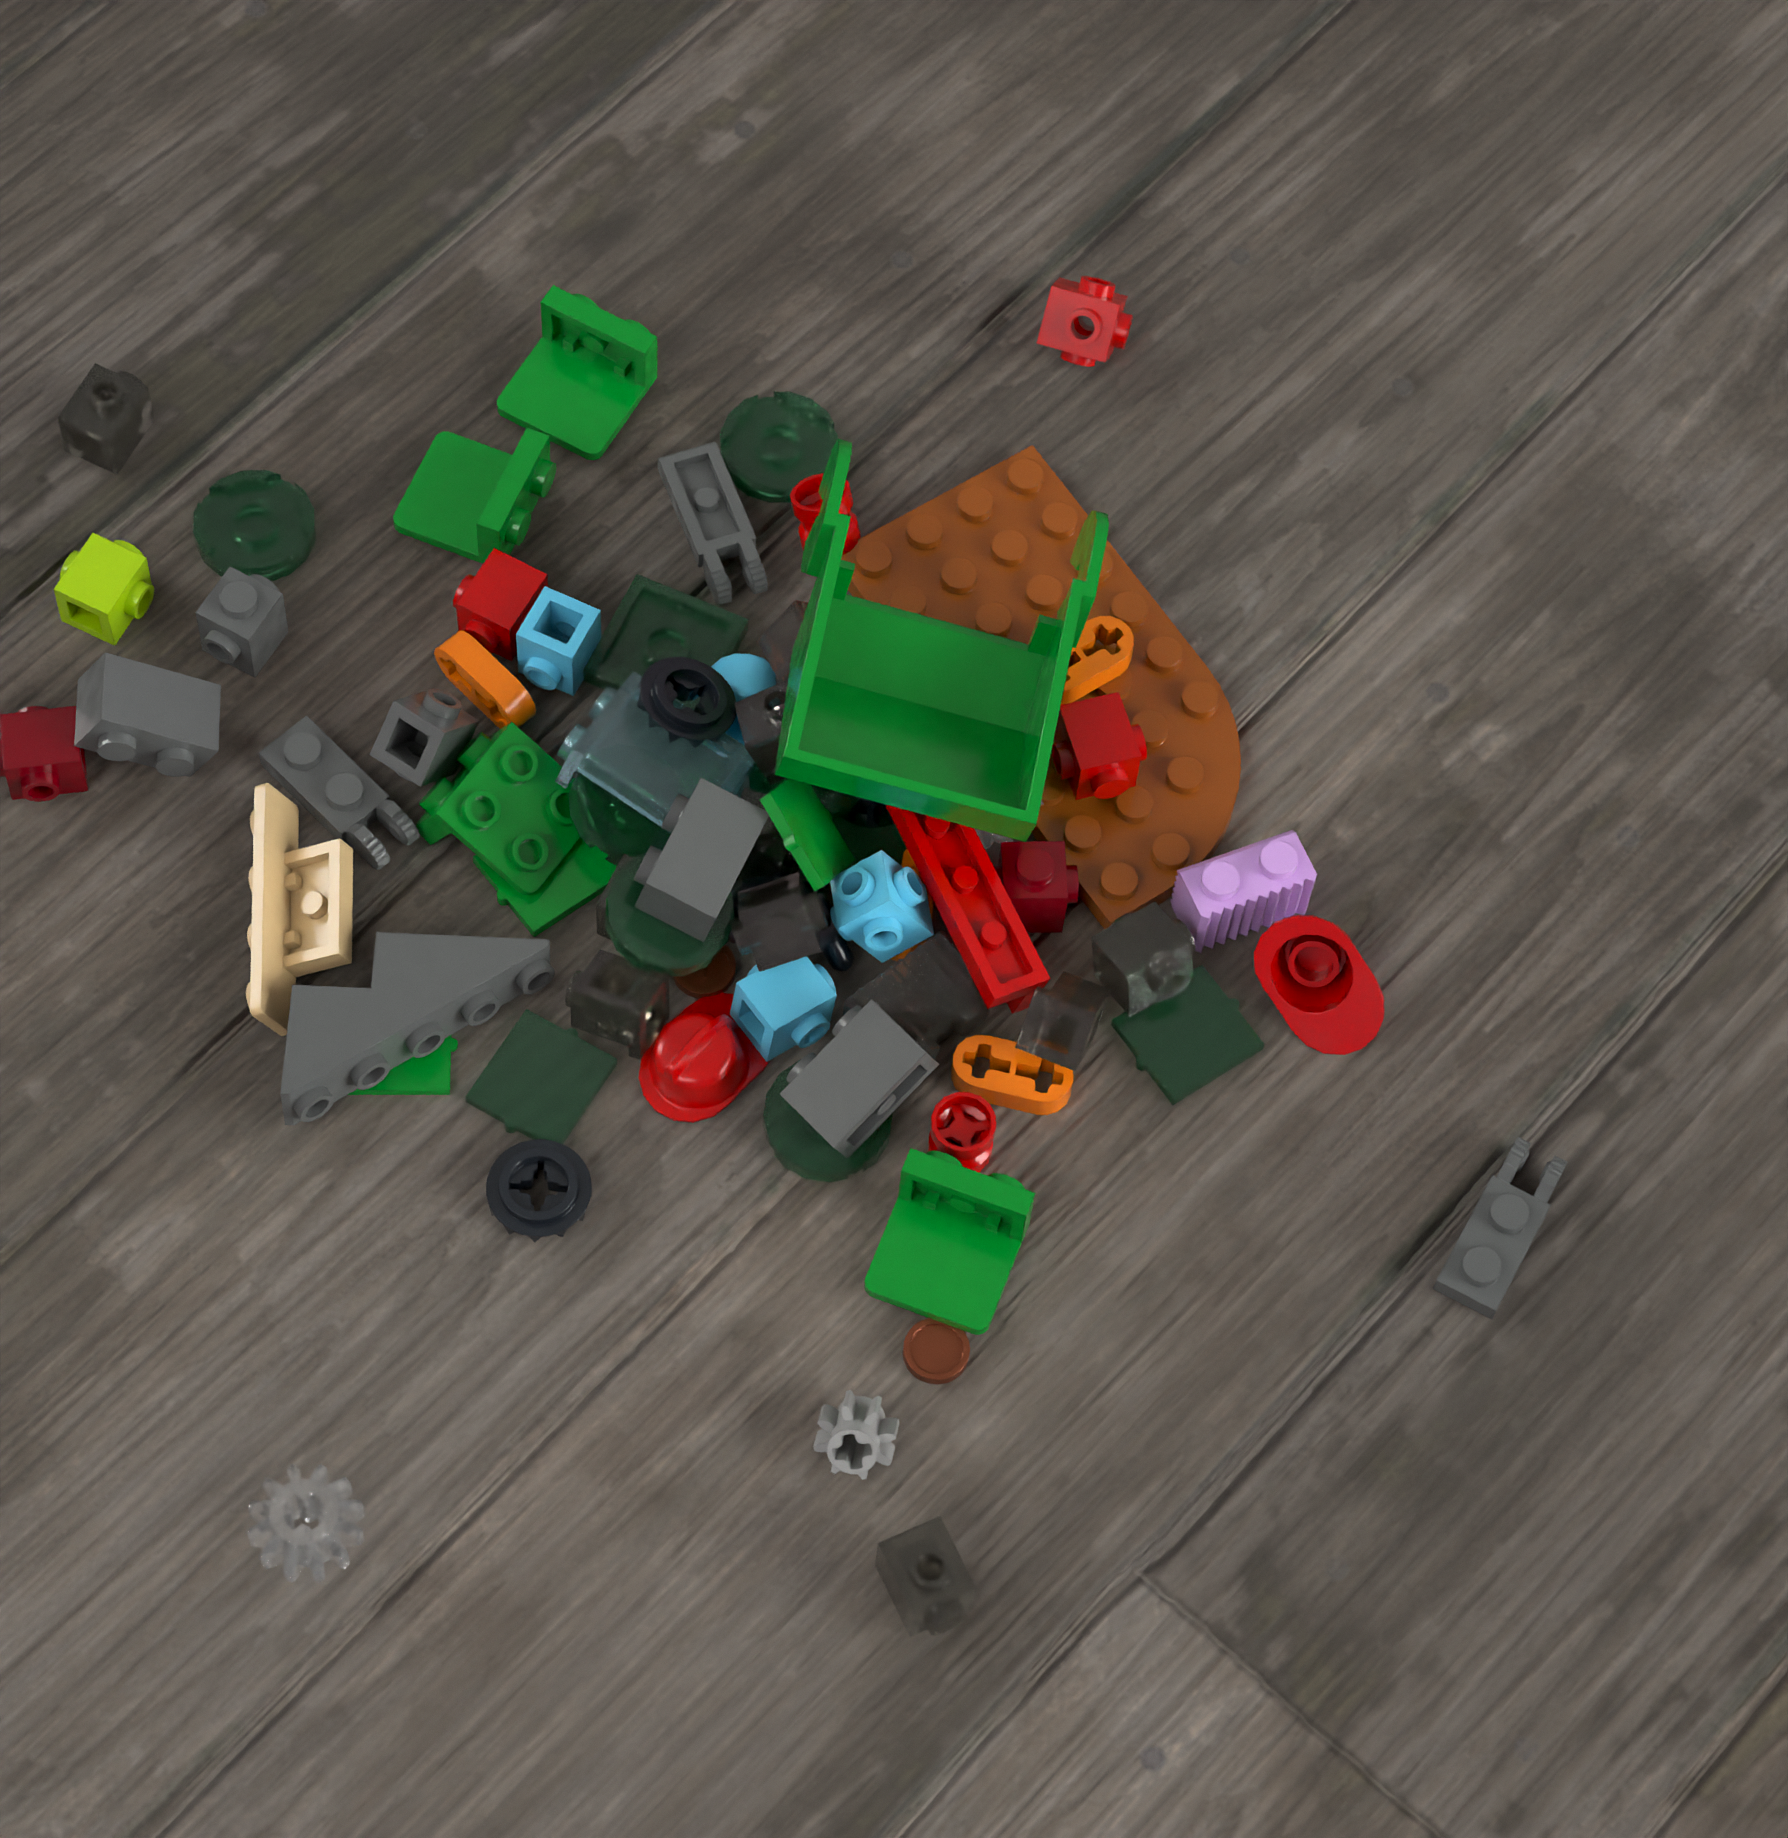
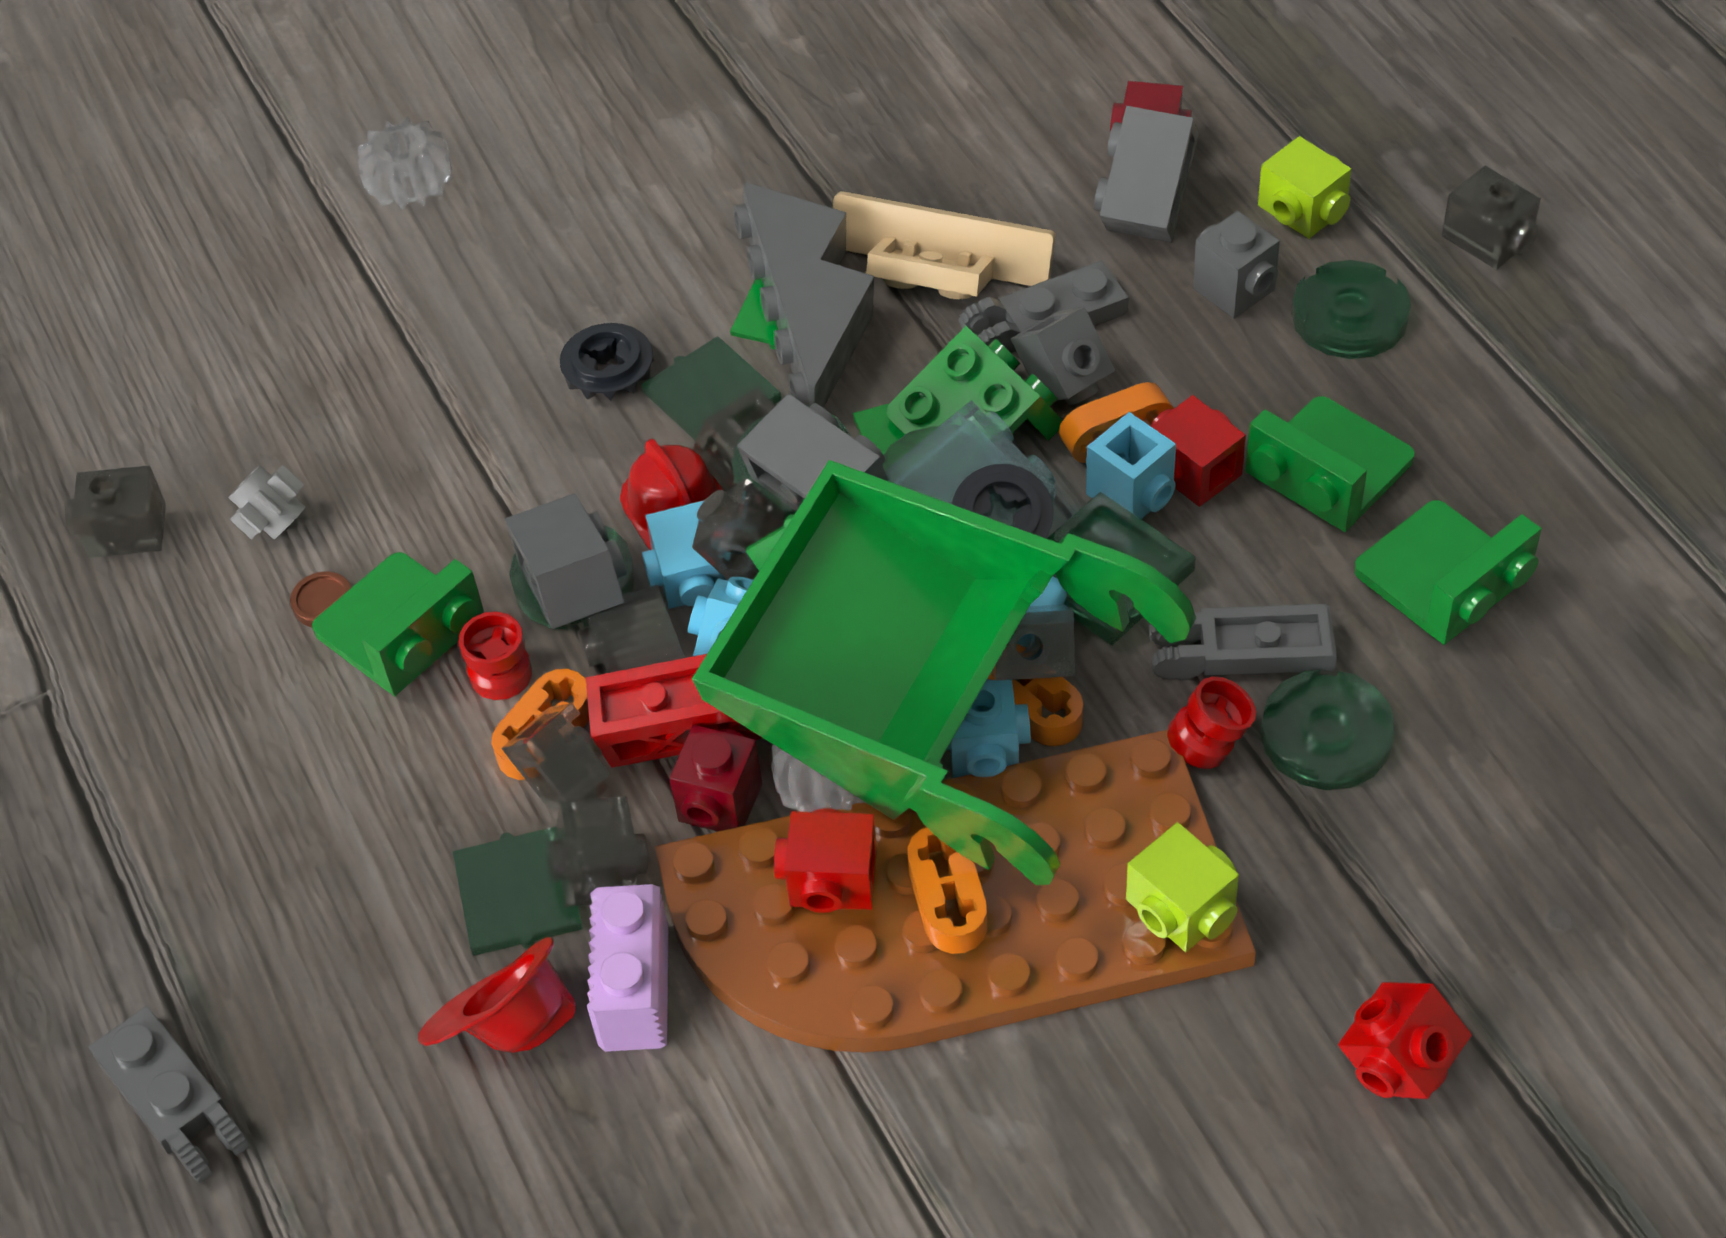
camera: 120 degrees right, 10 degrees down
(1020, 481) = (1183, 888): none -> lime brick

